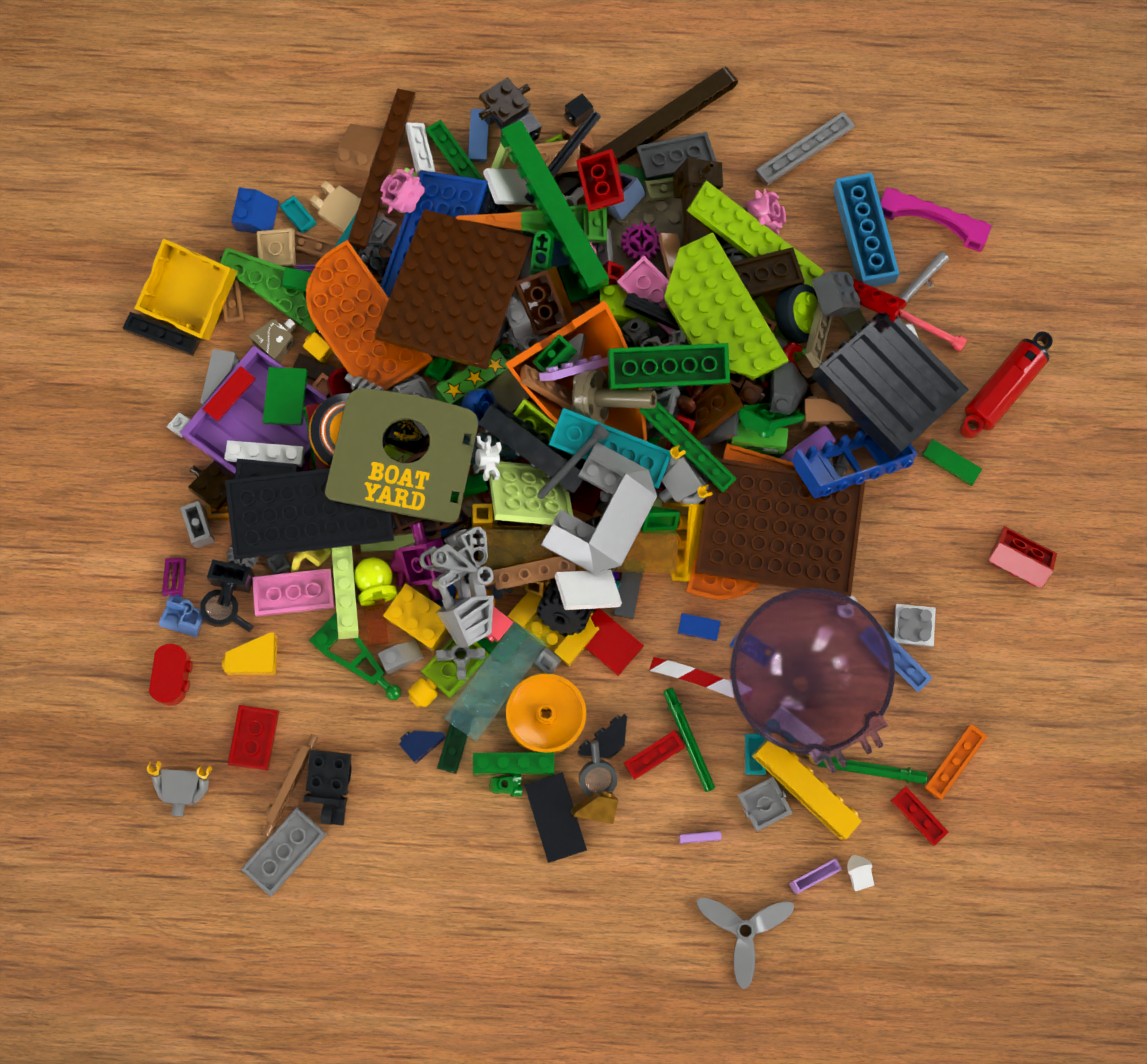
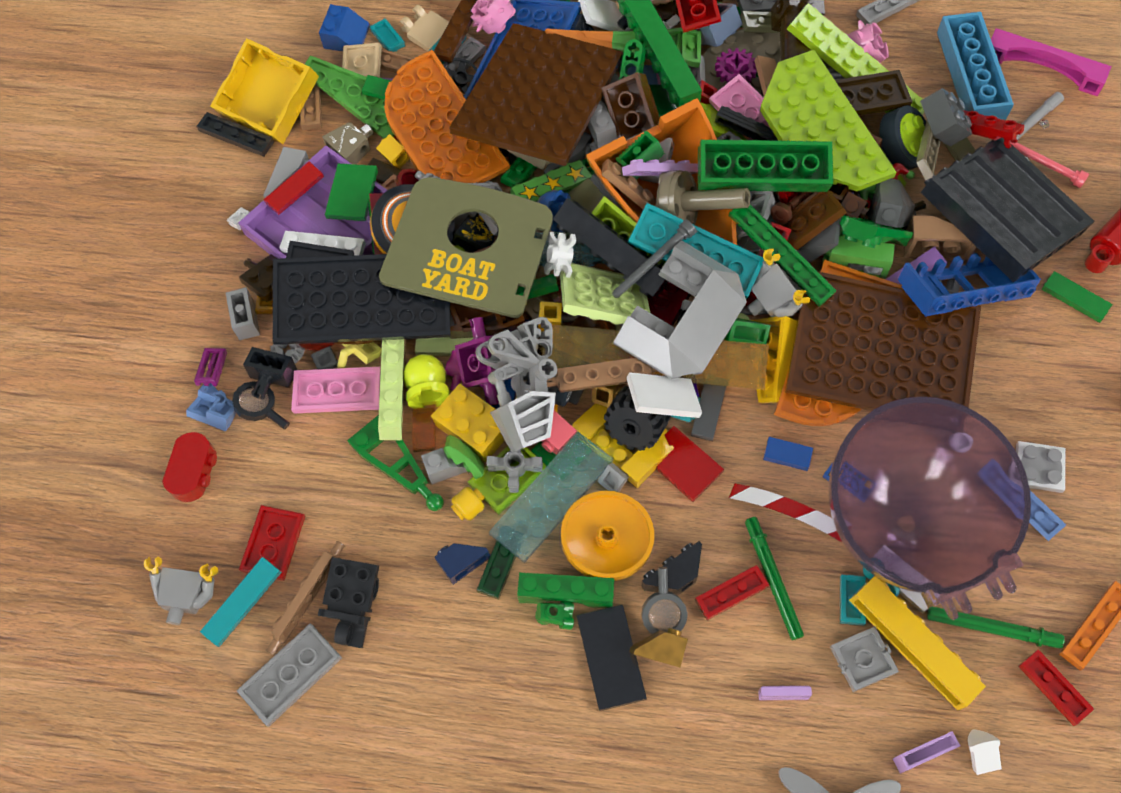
camera: 10 degrees right, 10 degrees down
(233, 793) = (240, 602): none -> teal tile
(253, 657) = (283, 454): yellow slope -> none
(415, 649) = (463, 453): none -> bright green slope

